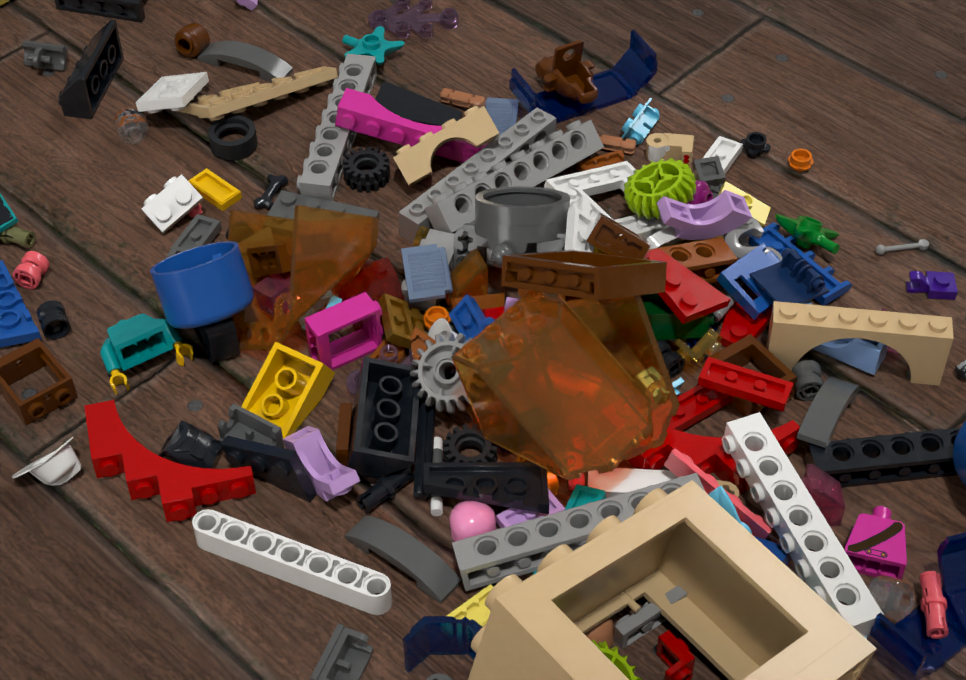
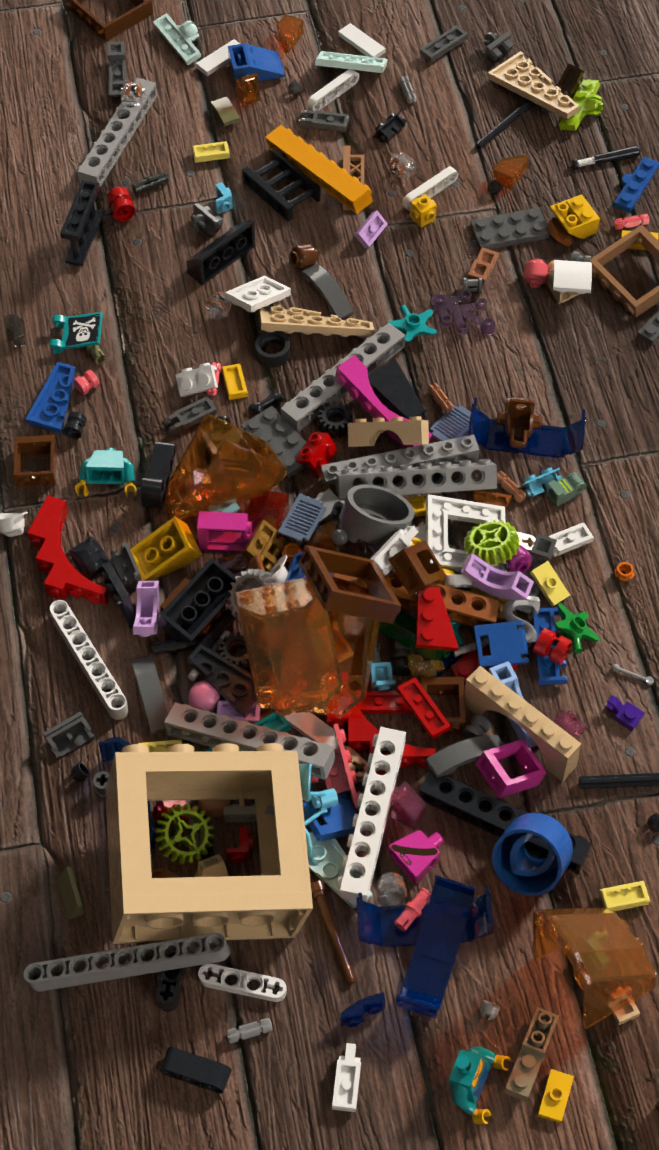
camera: 35 degrees right, 10 degrees up
(49, 27) = (224, 199): none -> medium azure bracket
(203, 285) = (154, 456): blue piece -> none
(379, 202) = (317, 452): none -> red bracket
(670, 114) = (565, 489): none -> sand green leg
(670, 146) = (544, 513): tan leg -> none
(755, 143) = (605, 537): black plate -> none
(790, 279) = (512, 657): dark blue hinge -> none
(819, 253) = (545, 644): none -> red wheel
(874, 394) = (502, 784): none -> dark pink window

